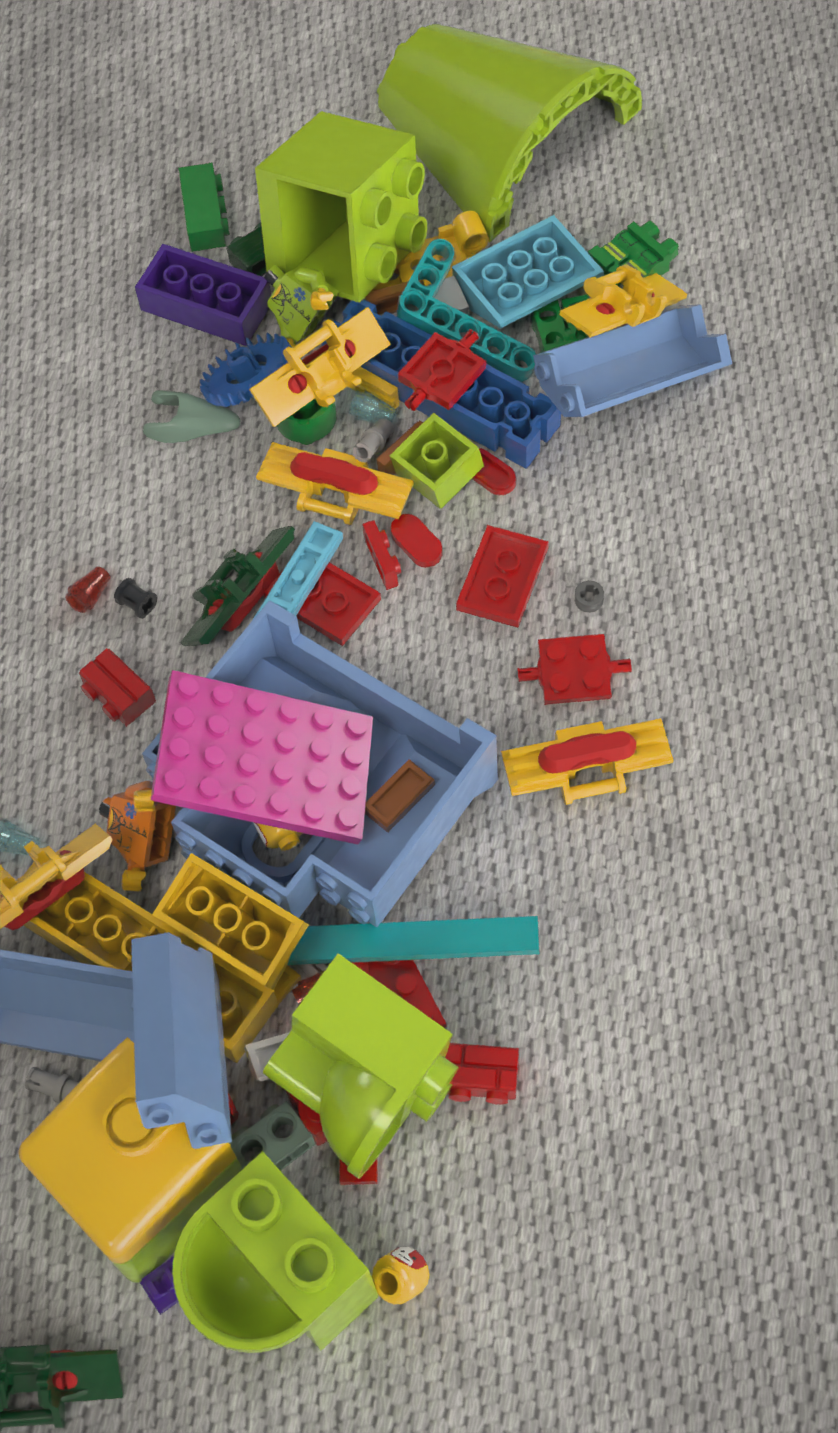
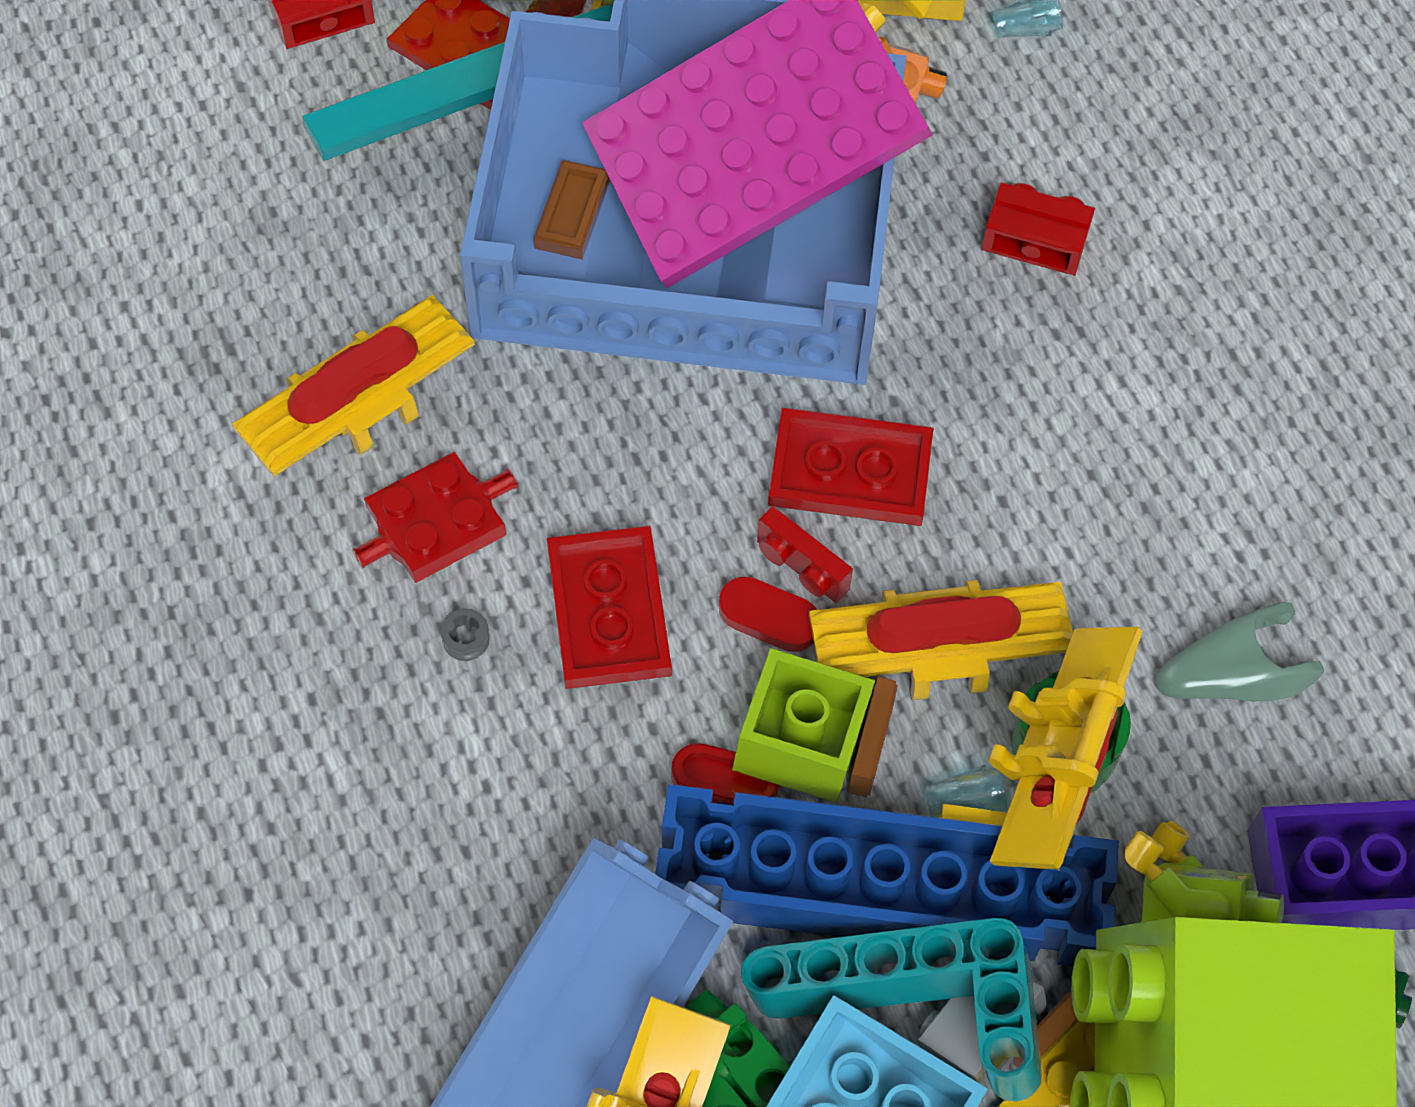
camera: 145 degrees right, 0 degrees up
(87, 590) = (1178, 337): clear red cone -> none
(135, 598) = (1105, 352): black bush -> none
(231, 601) = (967, 440): dark green piece -> none
(244, 367) = (1219, 742): blue gear -> none
(304, 568) = (894, 458): medium azure plate -> none
(373, 440) = (925, 724): light grey pin -> none
(442, 370) = (874, 842): red plate -> none

